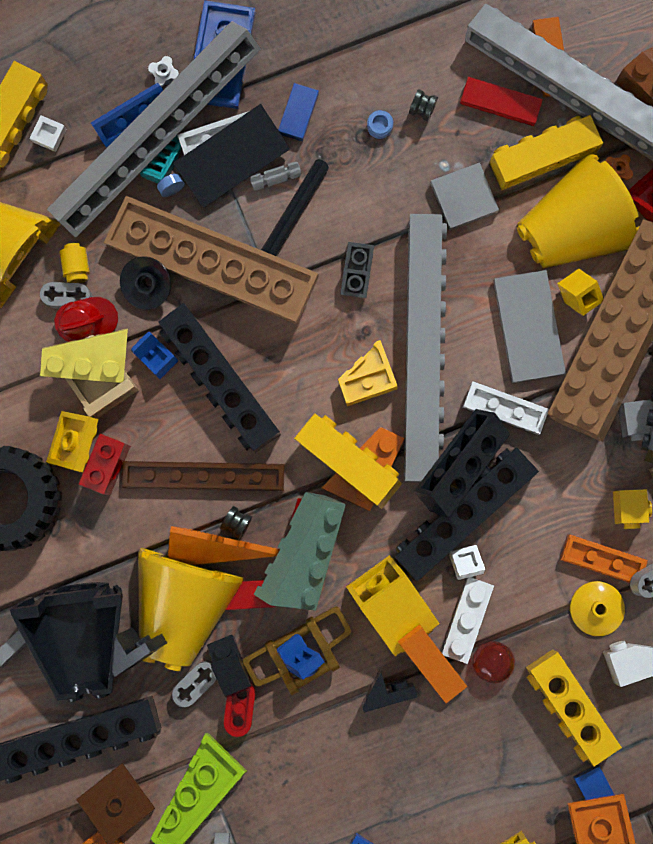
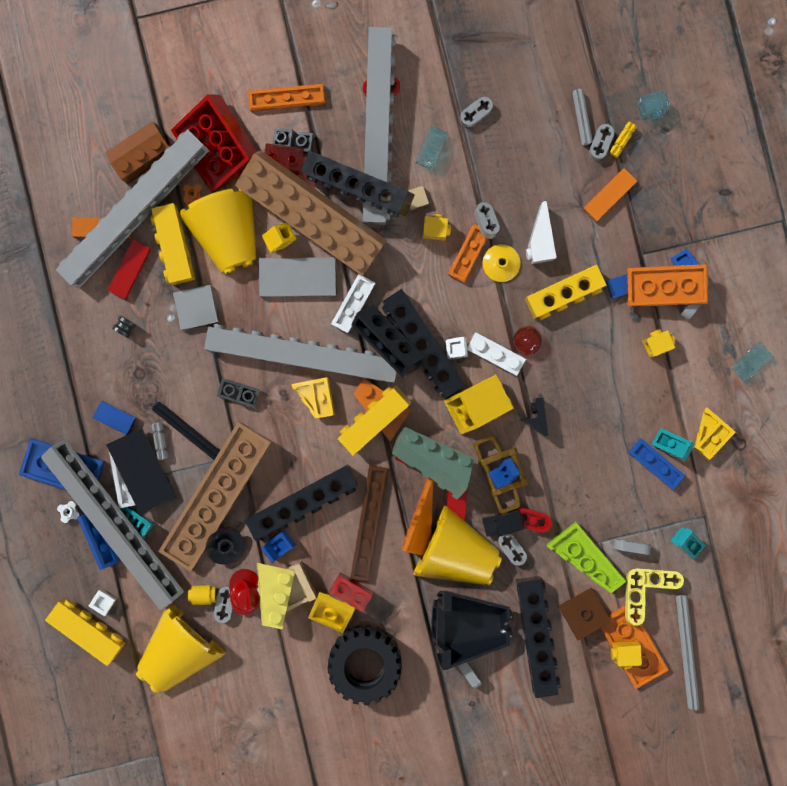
camera: 80 degrees left, 5 degrees up
(131, 650) = (482, 589): black slope -> none
(170, 185) = (155, 518): medium blue tile -> none
(235, 522) = (405, 505): pearl dark grey wheel -> none
(380, 124) = (133, 359): medium blue tile -> none
(432, 663) = (522, 383): orange tile -> none

